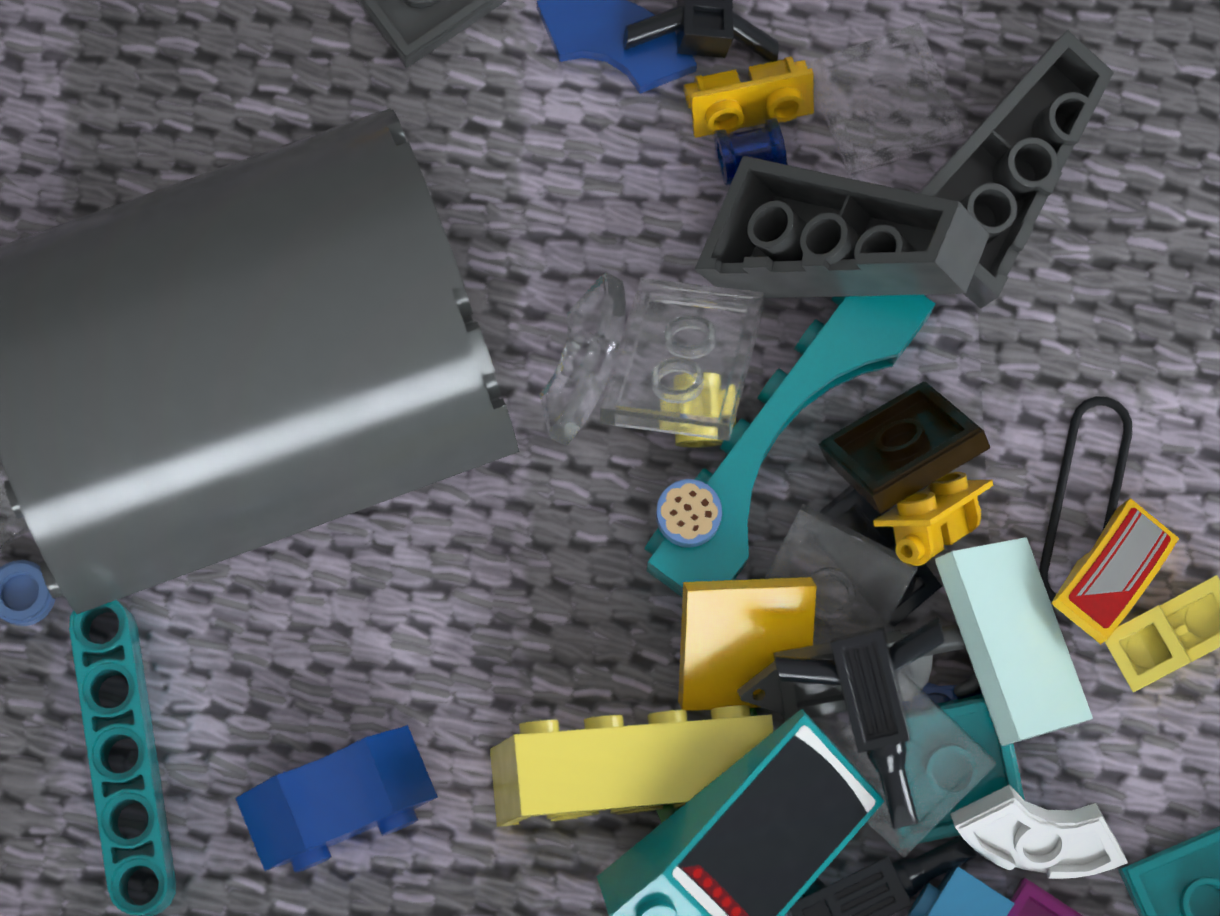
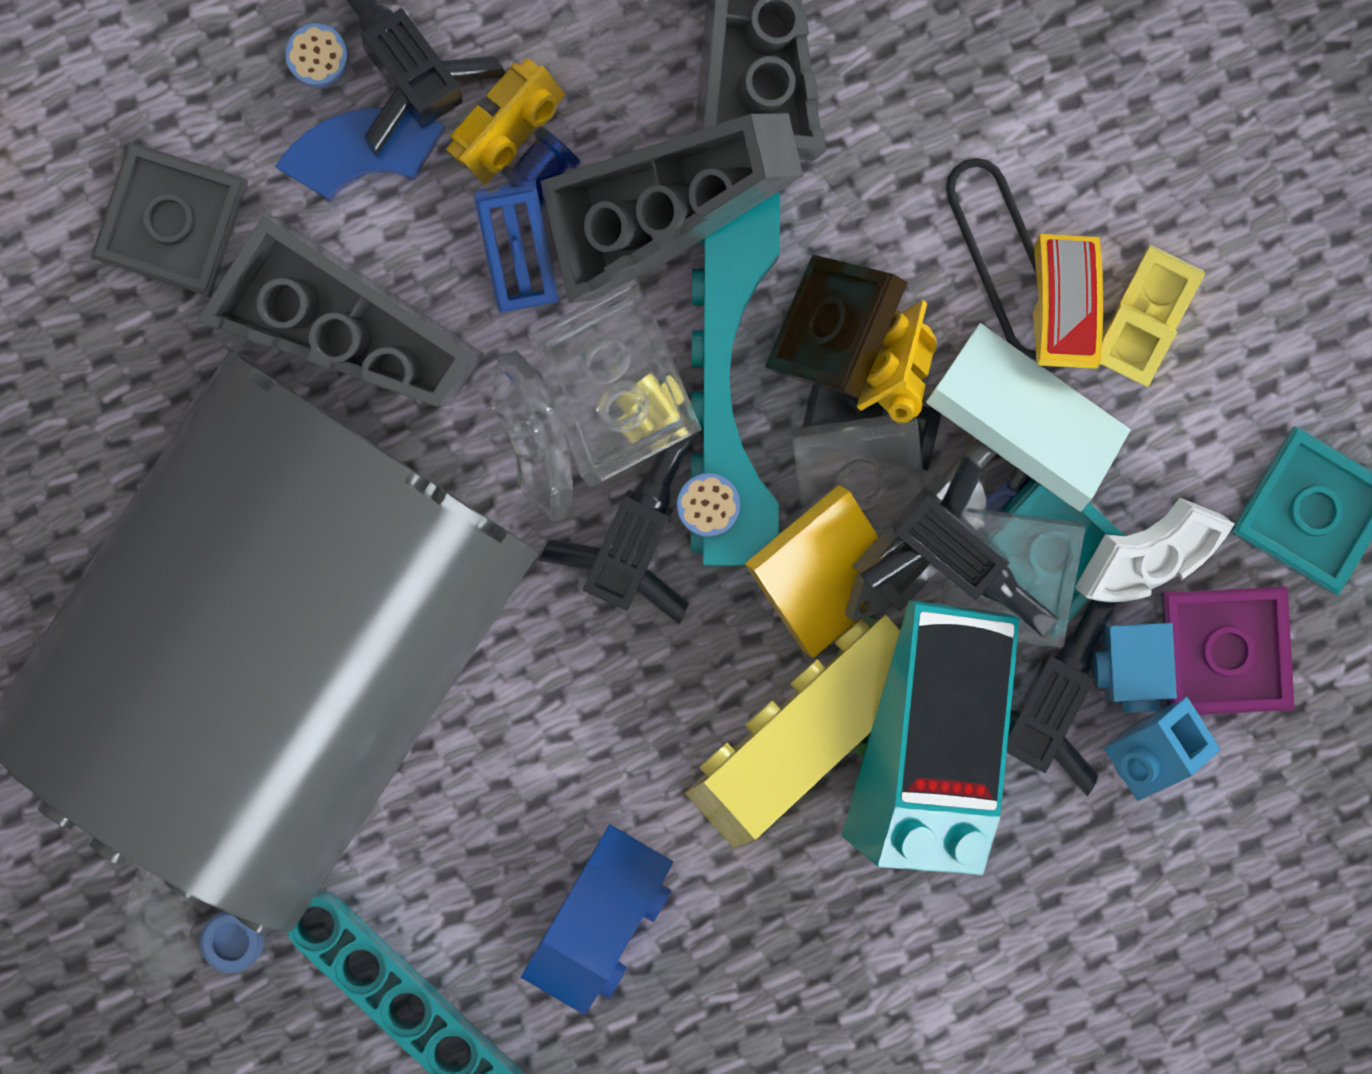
camera: 30 degrees left, 10 degrees up
(490, 137) = (336, 317): none -> dark grey wedge
(599, 503) = (623, 560): none -> black piece
(706, 150) = (507, 198): none -> blue tile

